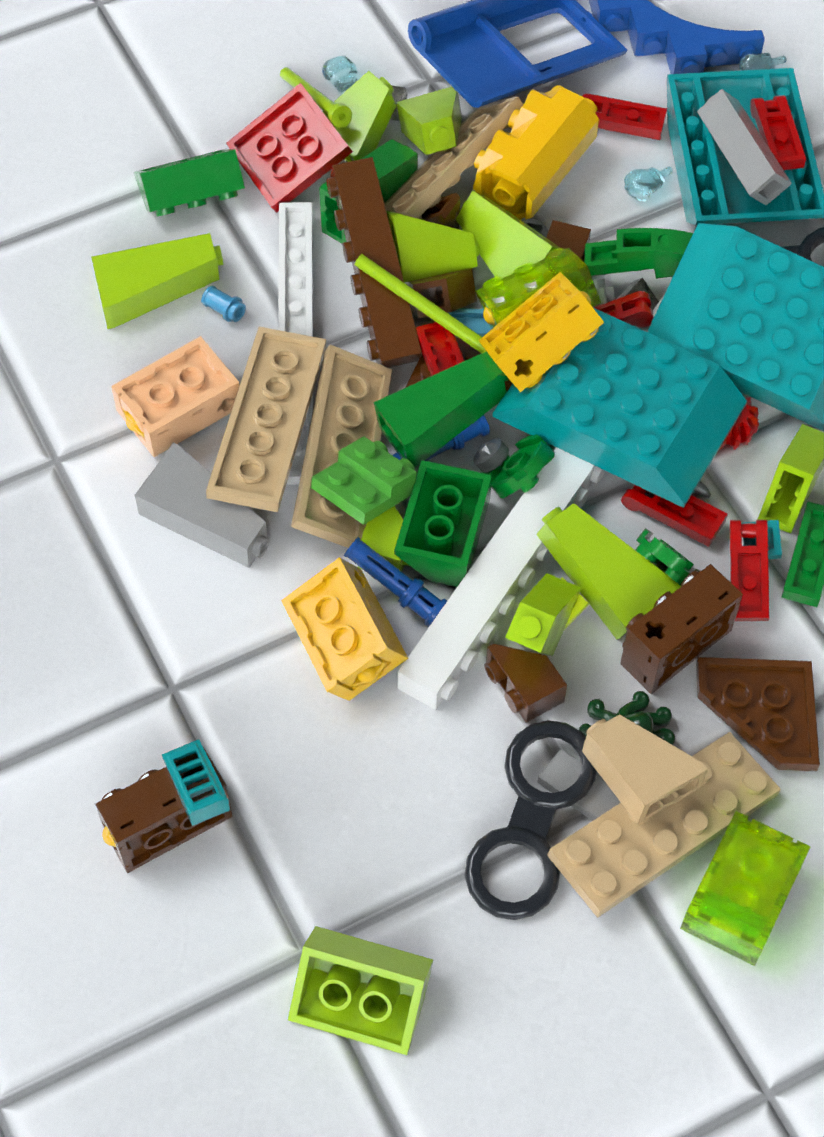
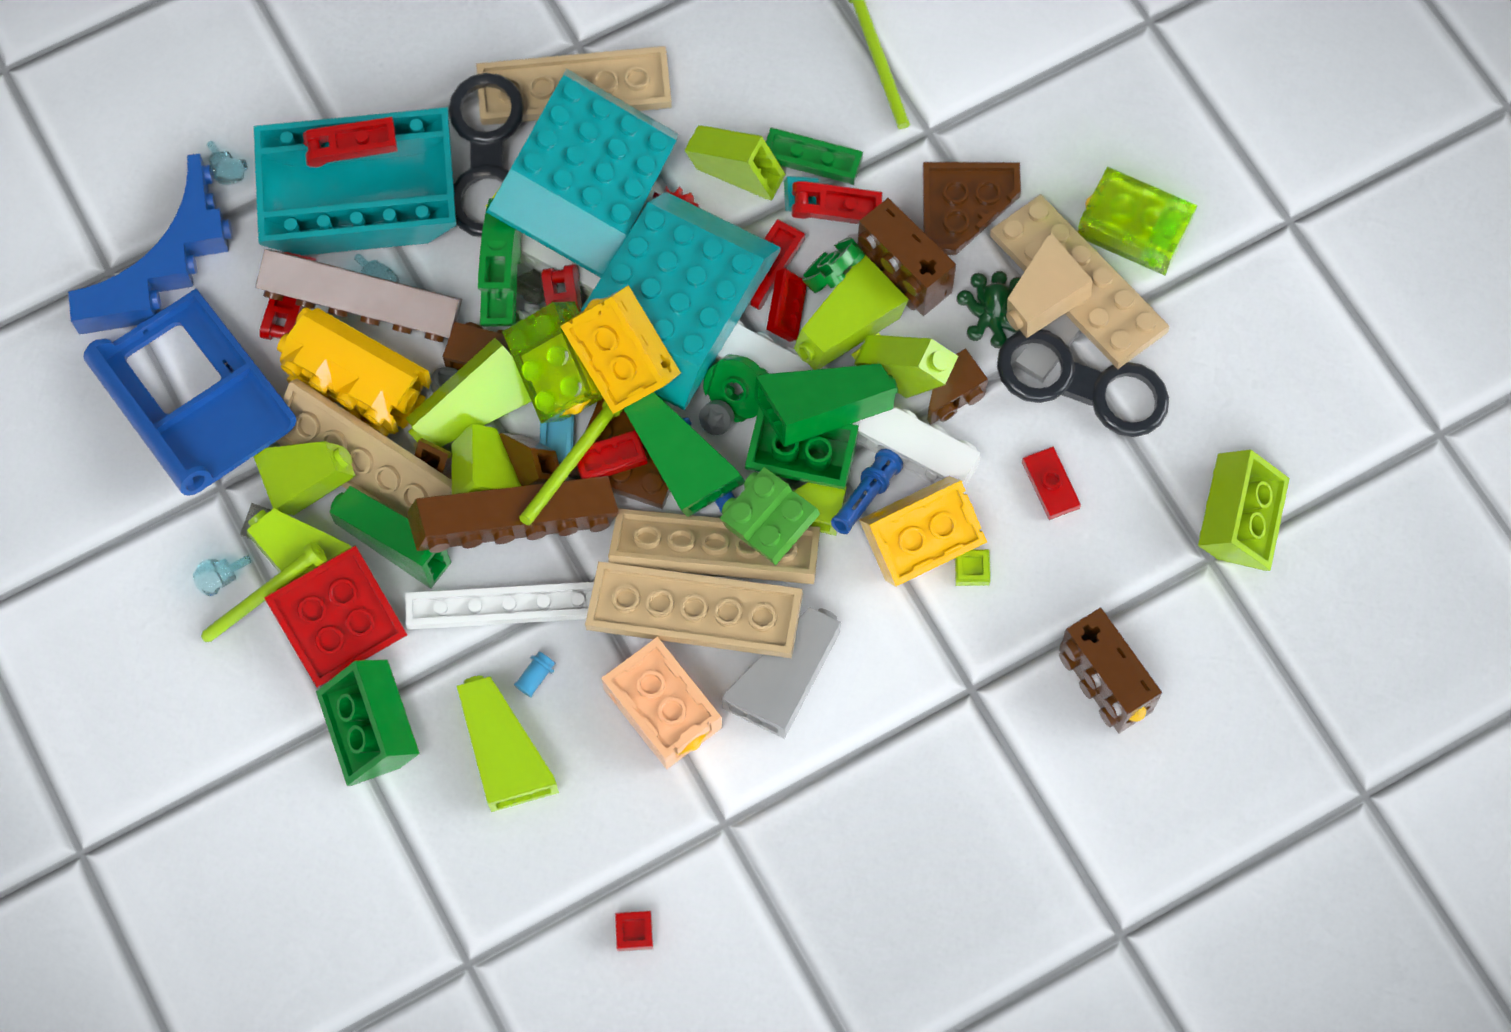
camera: 90 degrees left, 10 degrees up
(208, 806) = (1111, 610): teal slope -> none
(309, 695) = (973, 568): none -> lime tile
(408, 780) = (1051, 483): none -> red plate
(492, 526) = (823, 399): none -> green slope
(618, 152) = (358, 294): none -> brick
(625, 519) = (786, 305): none -> red plate
(744, 147) = (376, 170): light grey brick -> none

